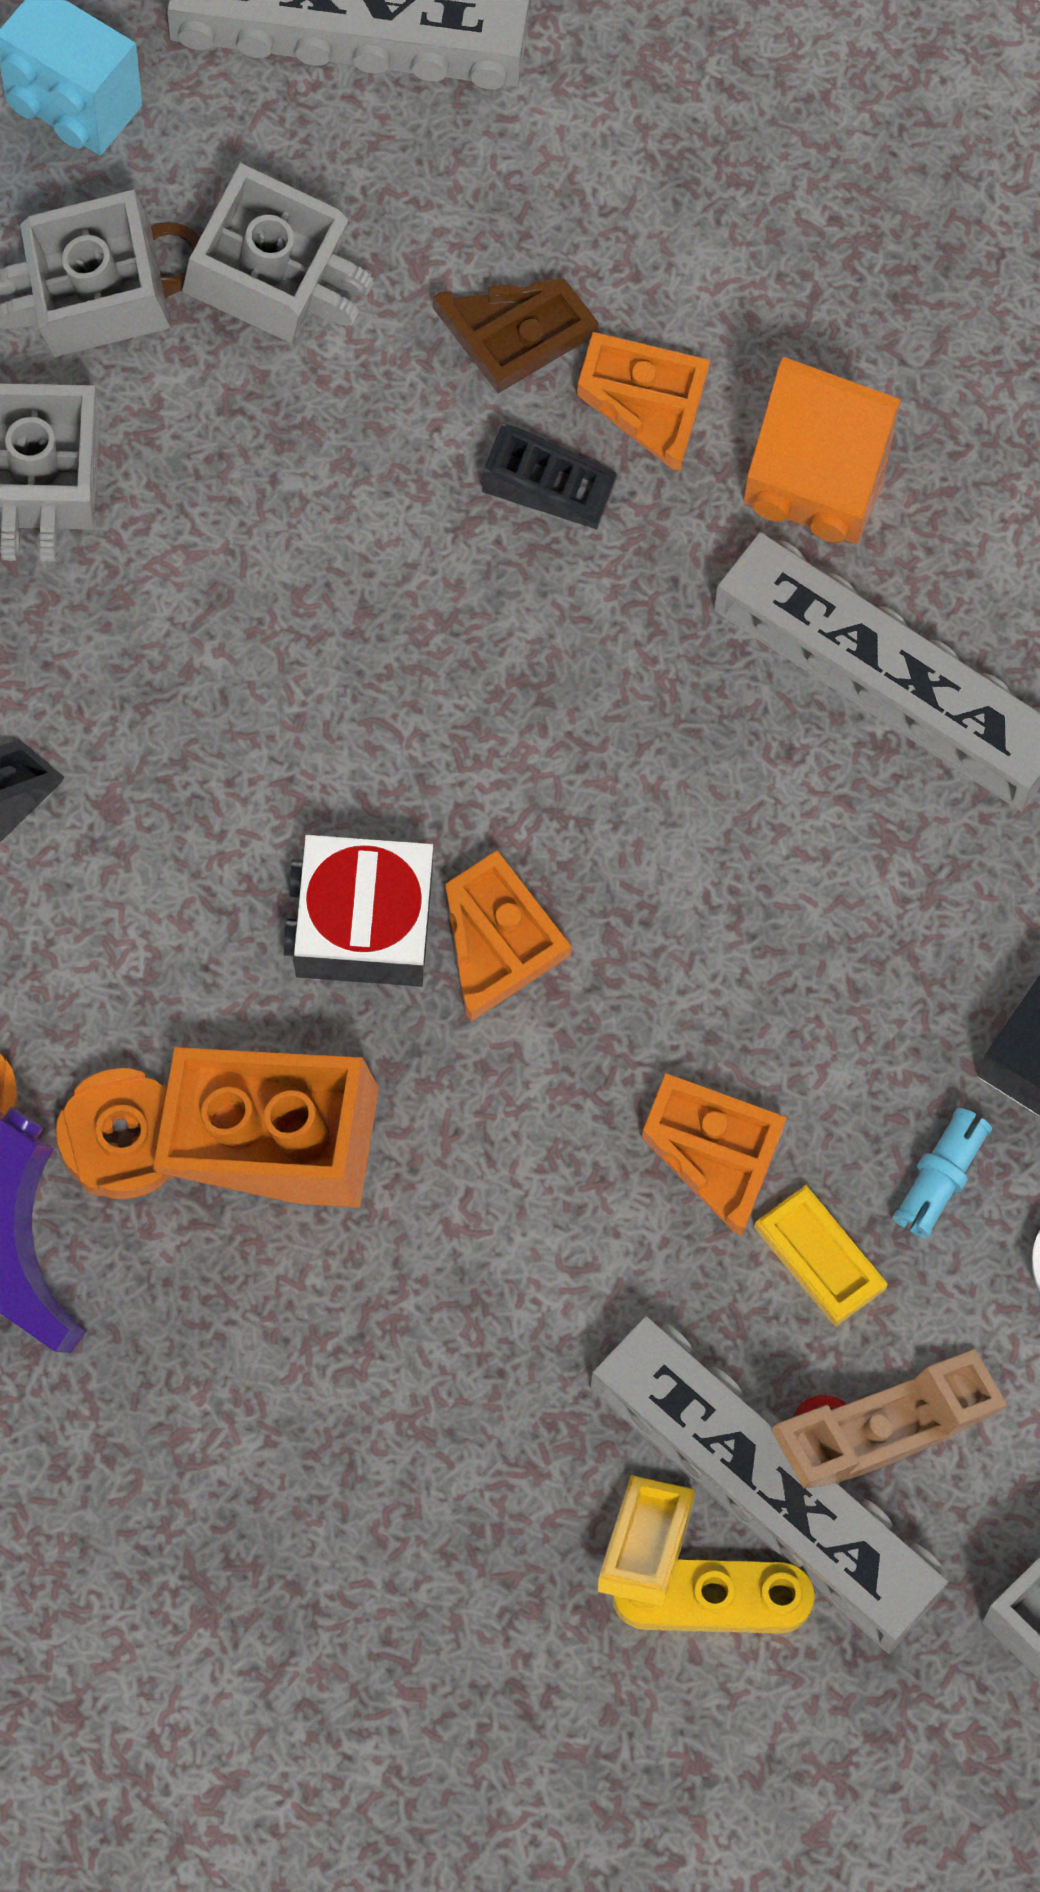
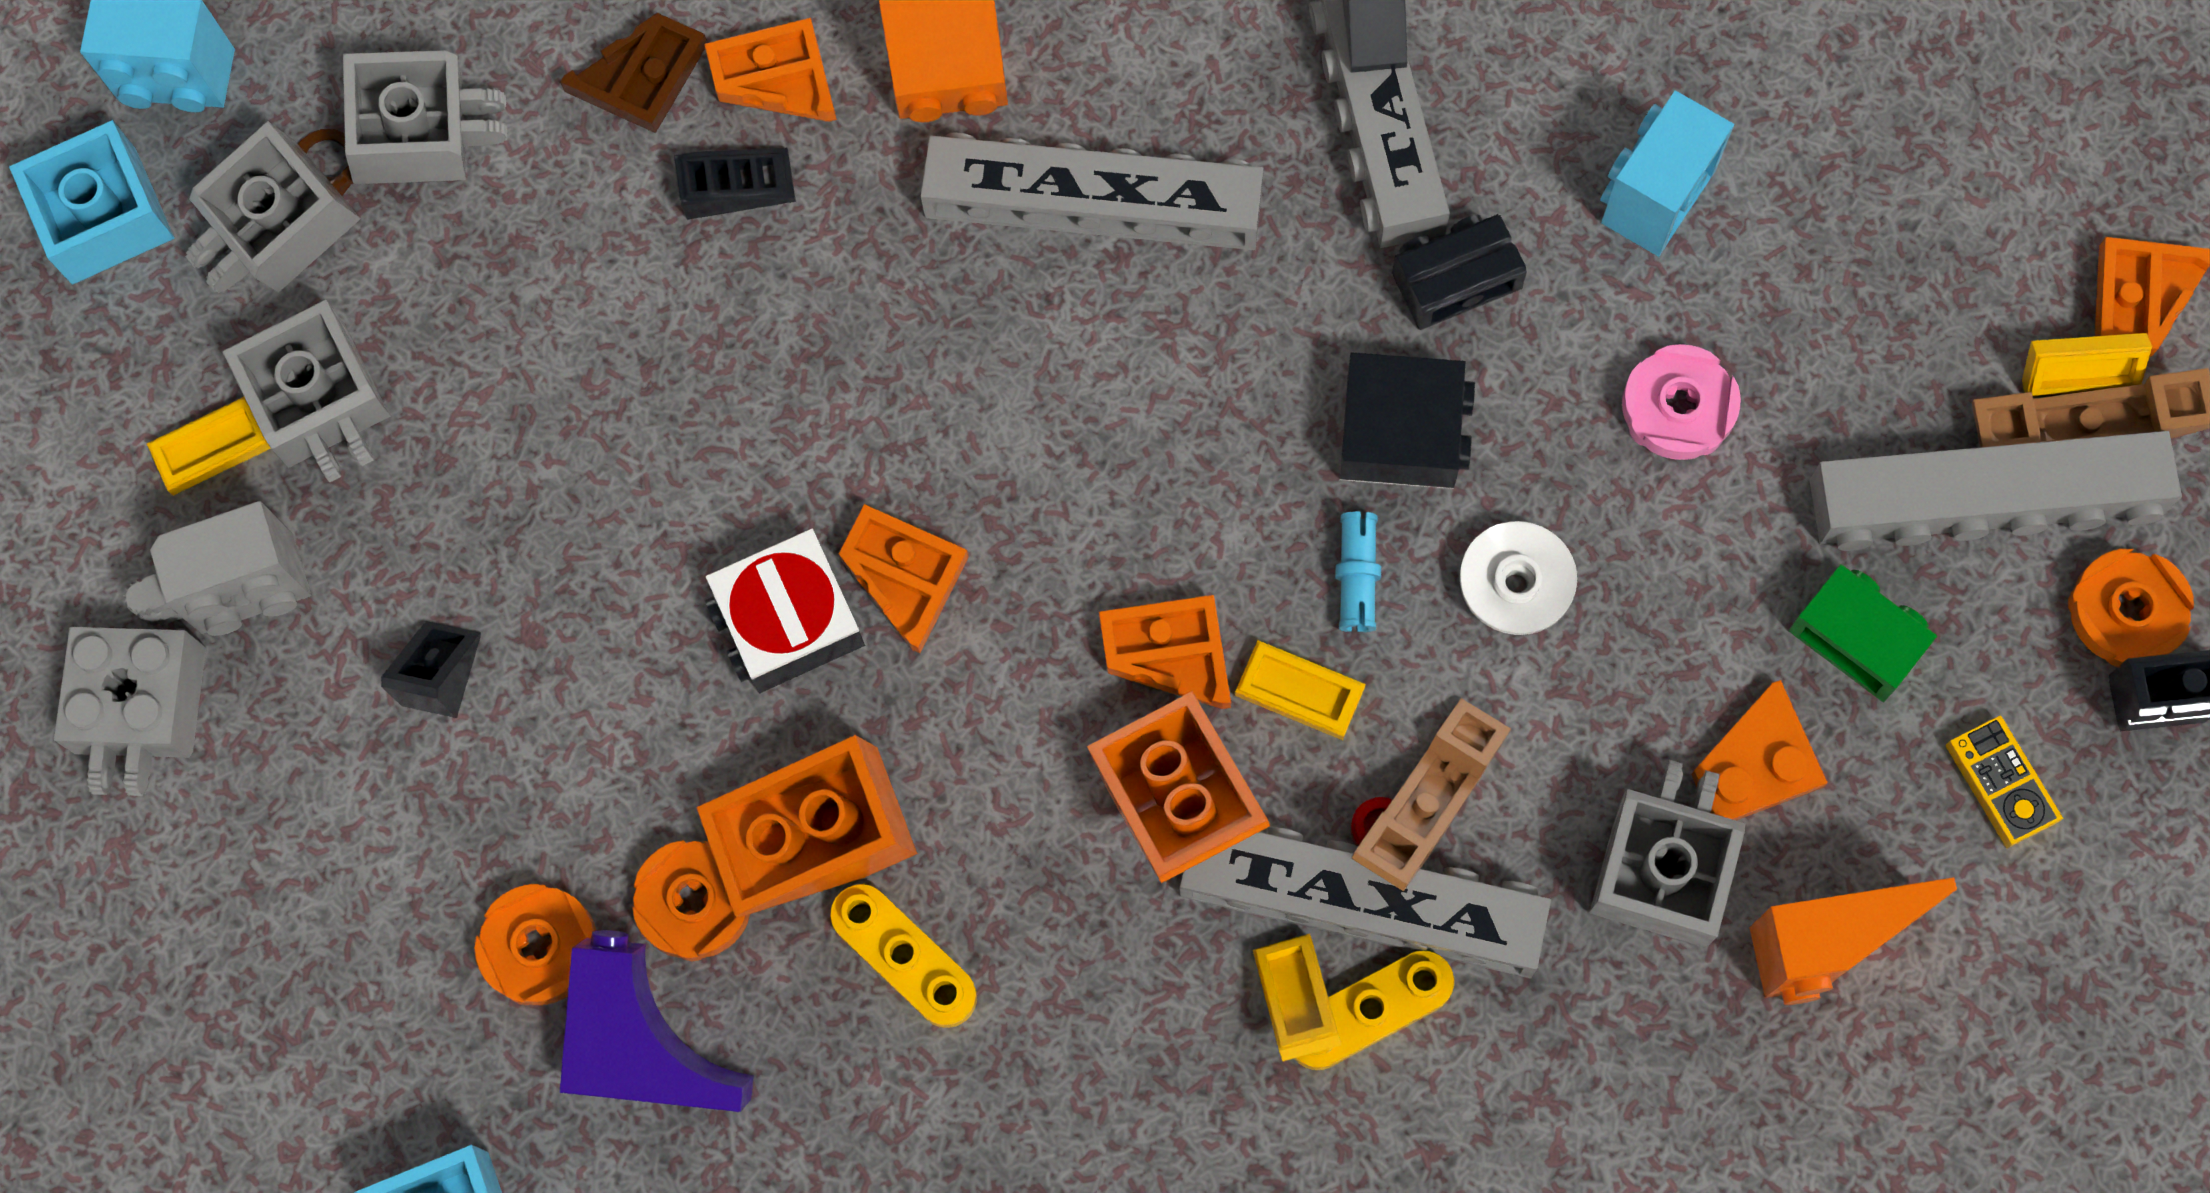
camera: 20 degrees left, 5 degrees up
(297, 1323) = (920, 976): none -> yellow plate
(642, 1271) = (1177, 787): none -> orange slope

